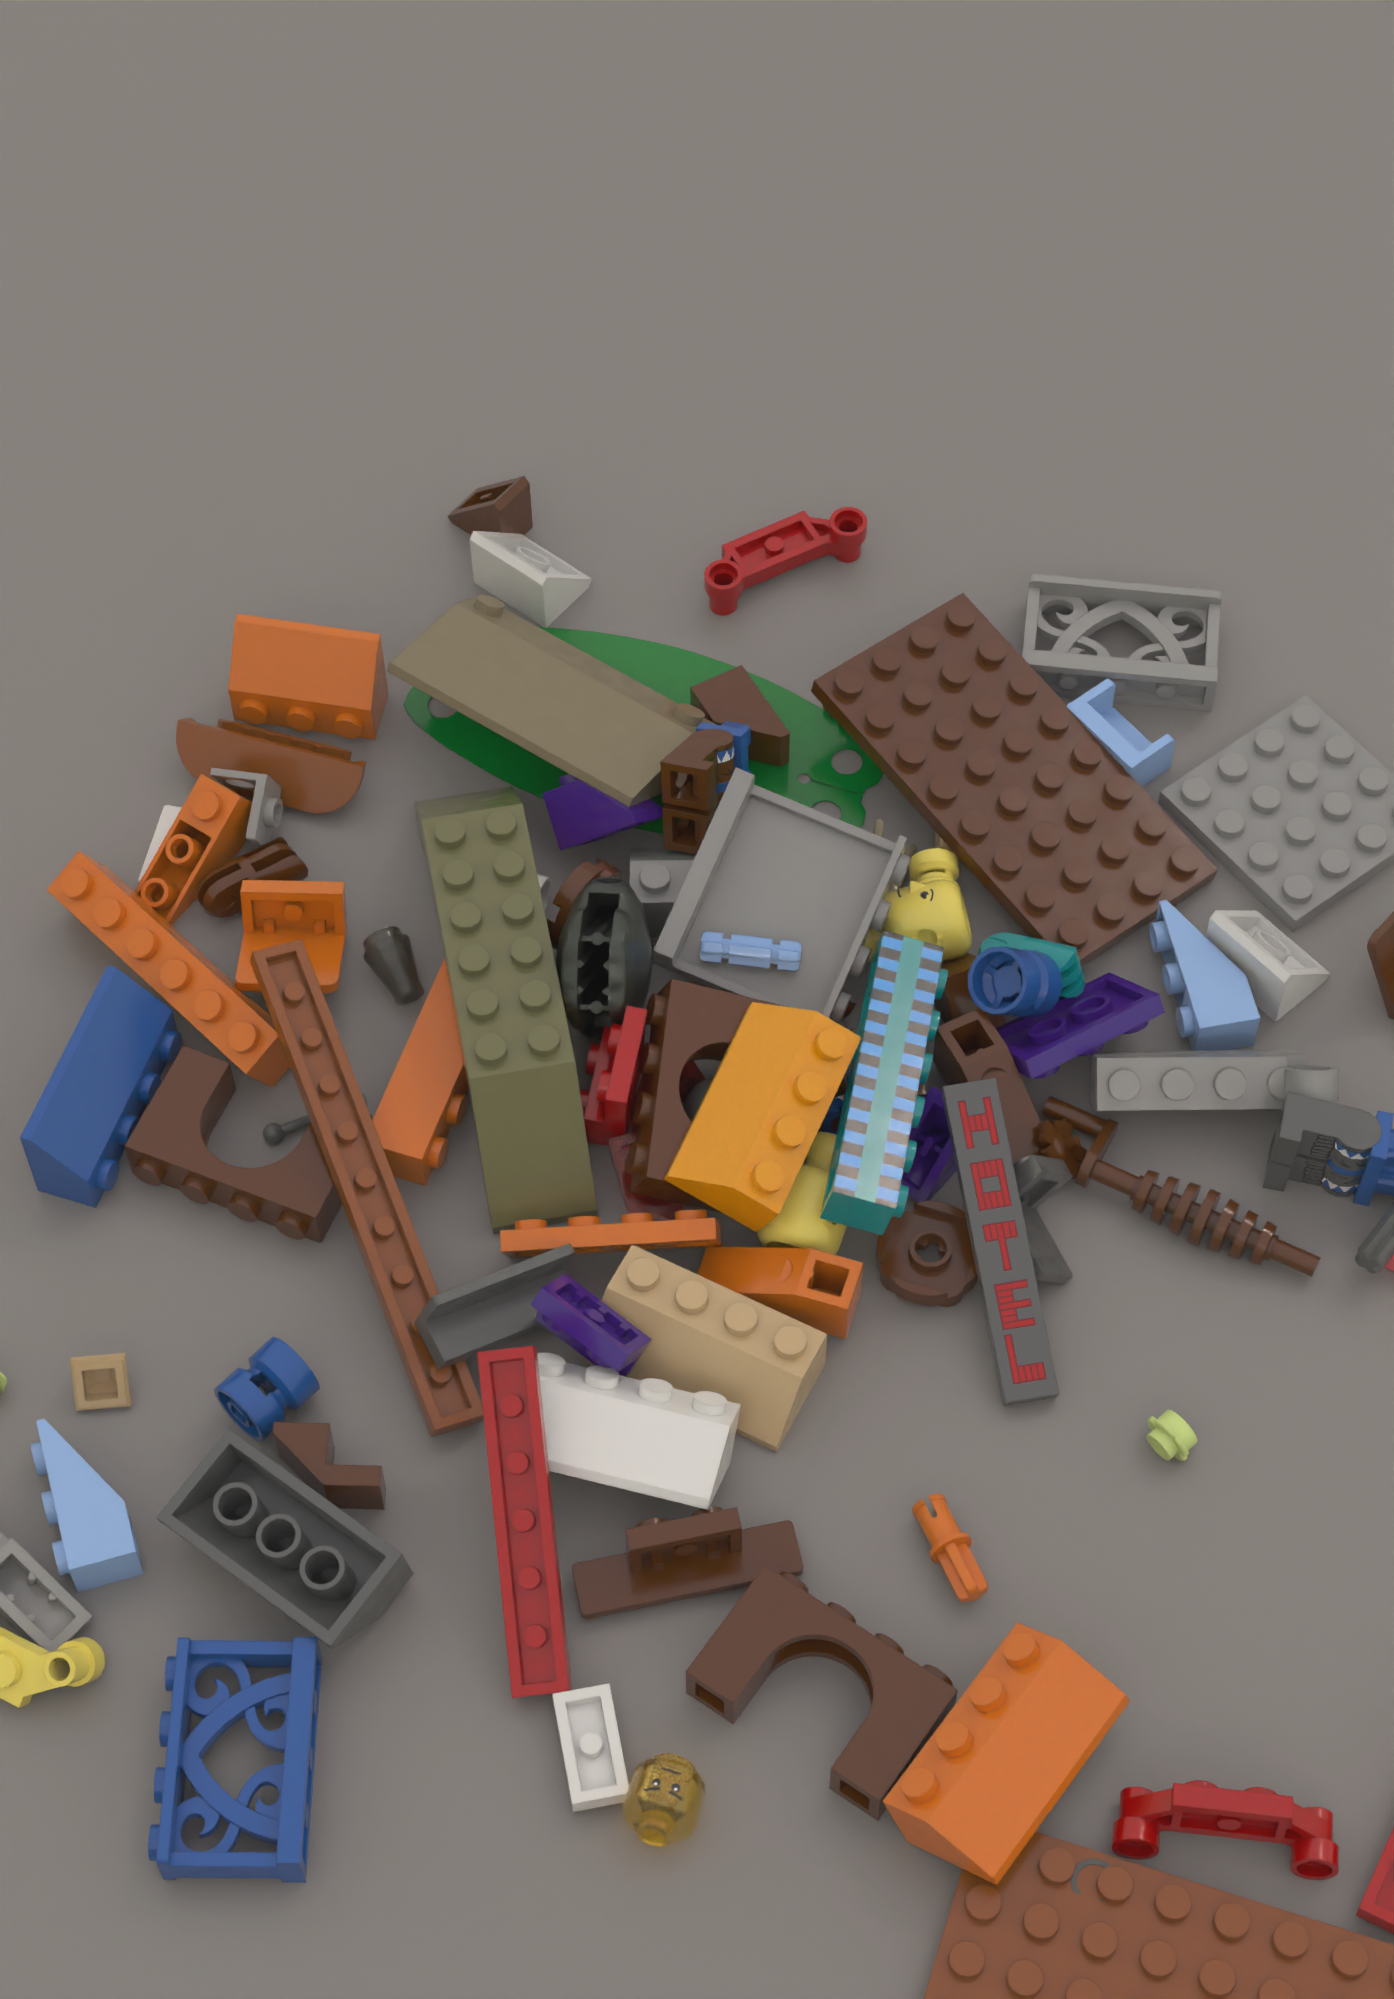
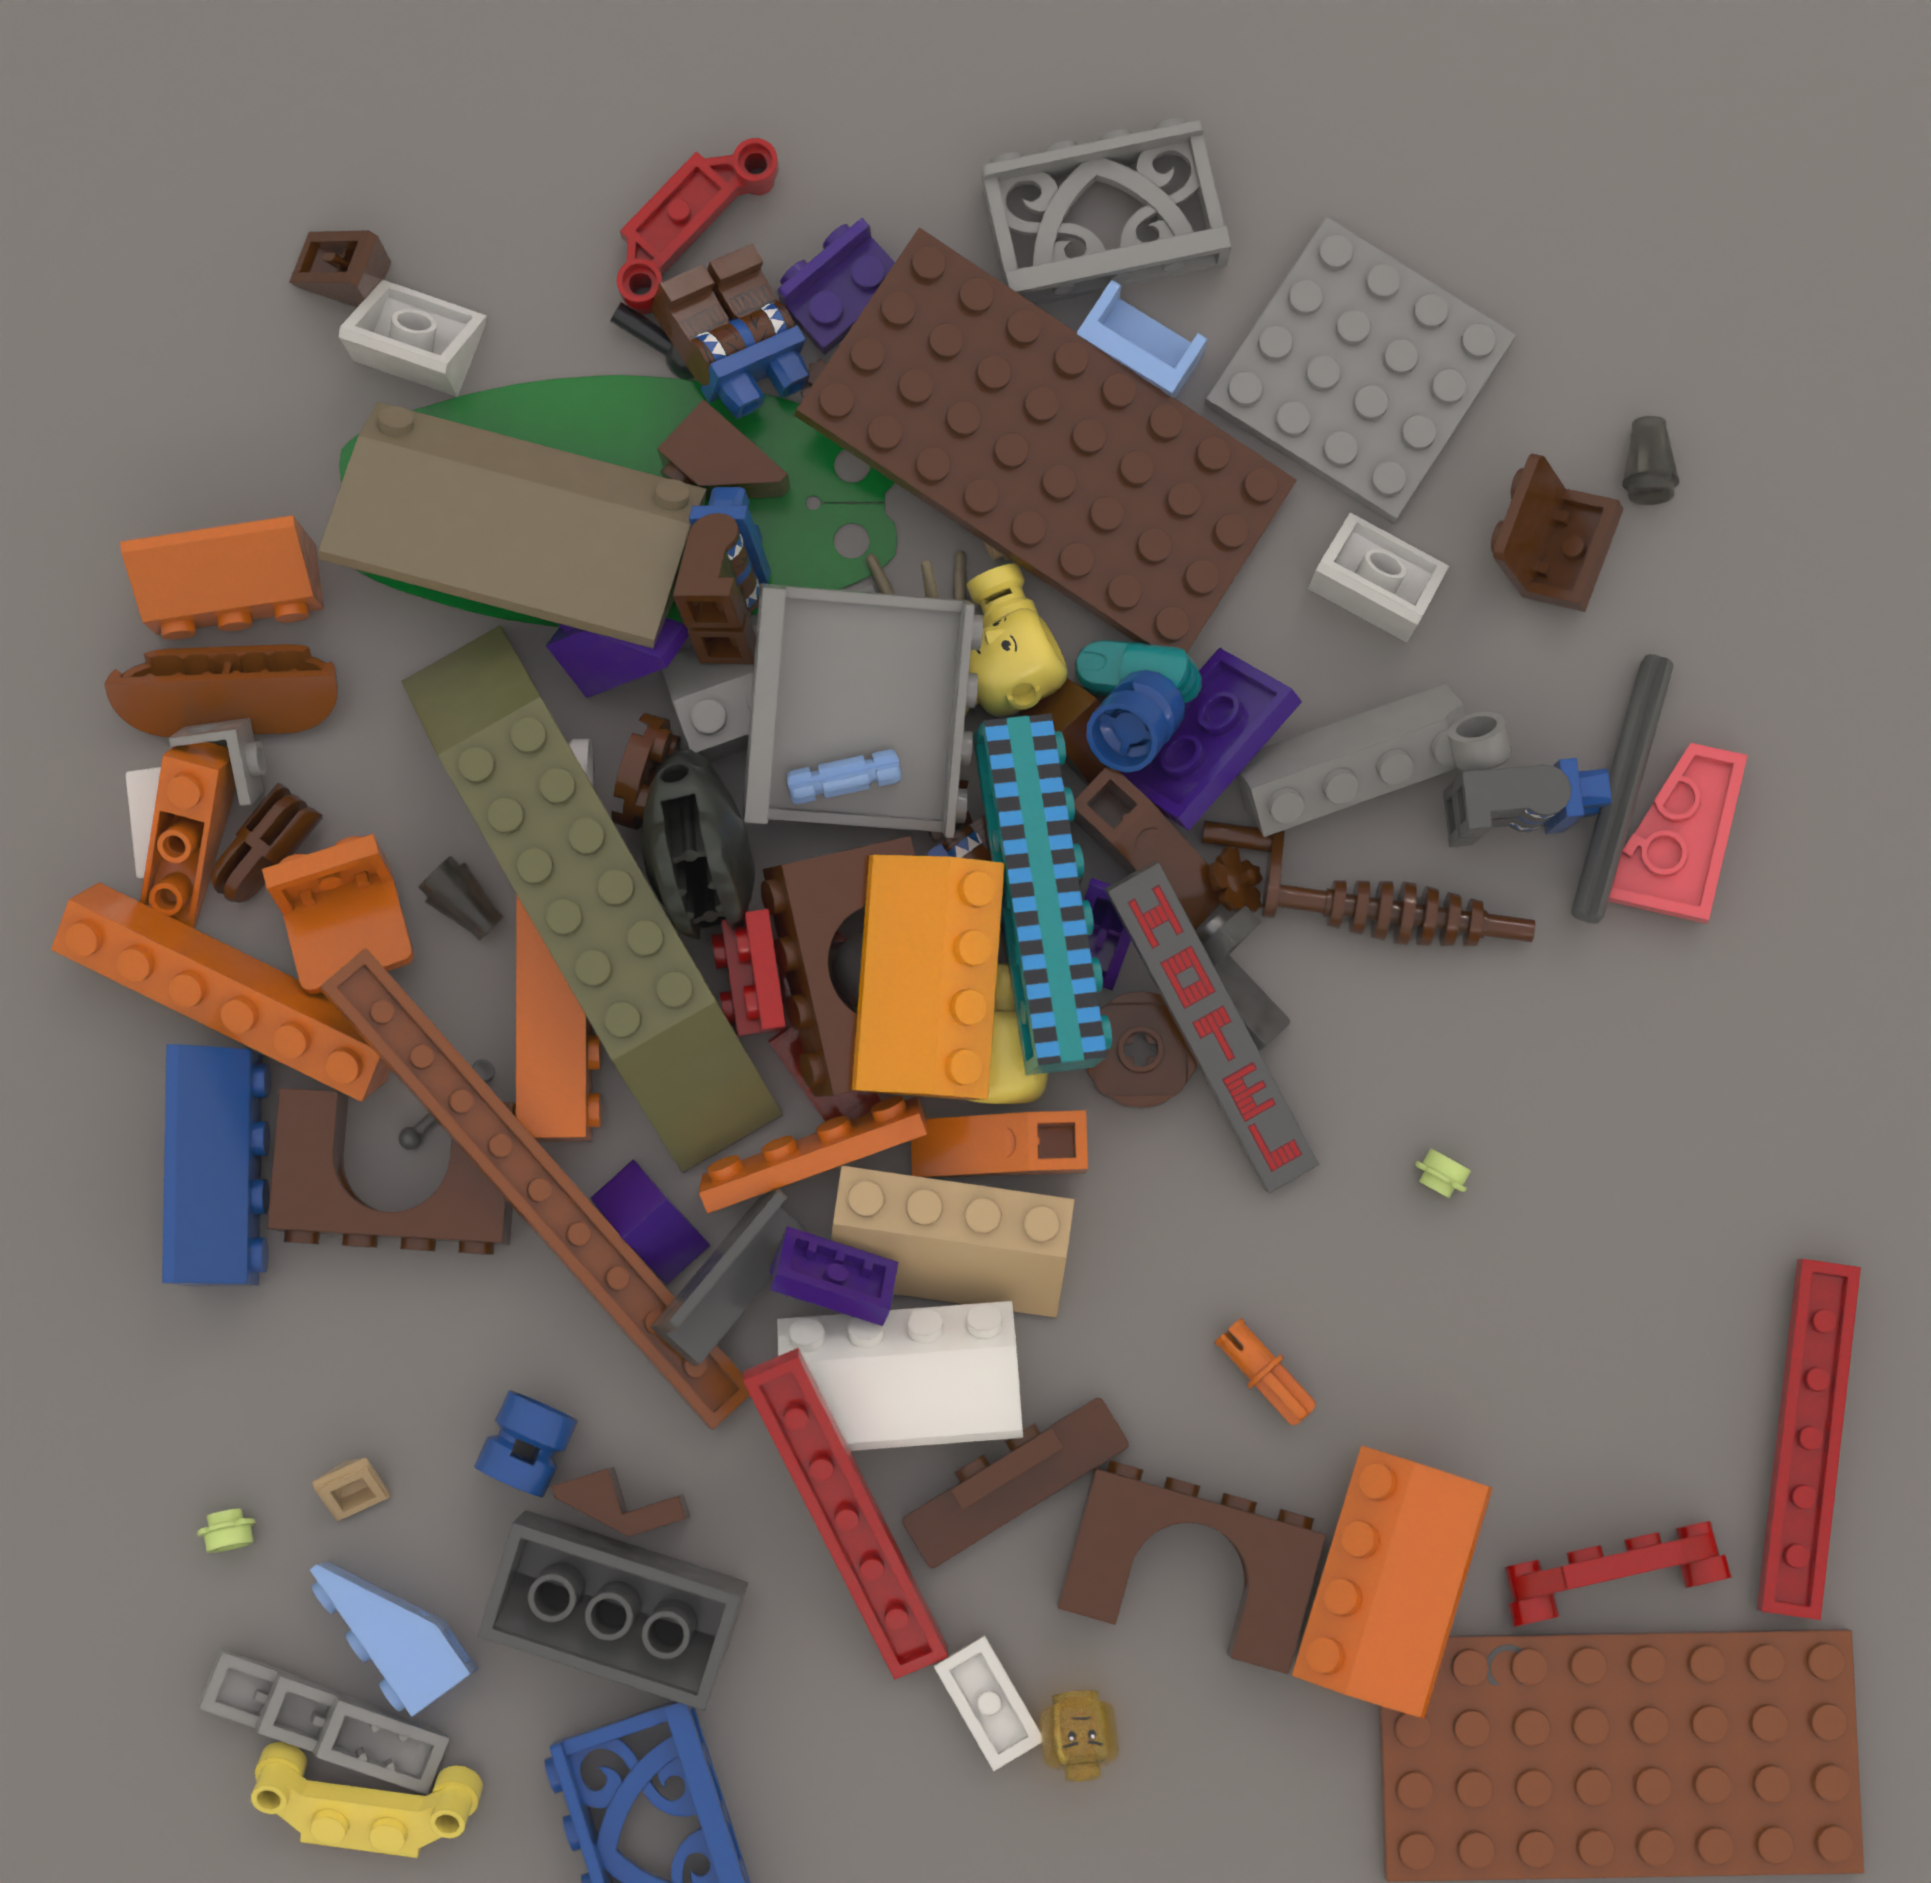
camera: 20 degrees left, 25 degrees up
(449, 1248) = (649, 1222): none -> dark purple slope
(738, 647) = (652, 335): none -> black bar
(782, 628) = (732, 331): none -> hips
(871, 620) = (835, 285): none -> dark purple bracket
(1210, 990) = (1333, 639): light blue slope -> none

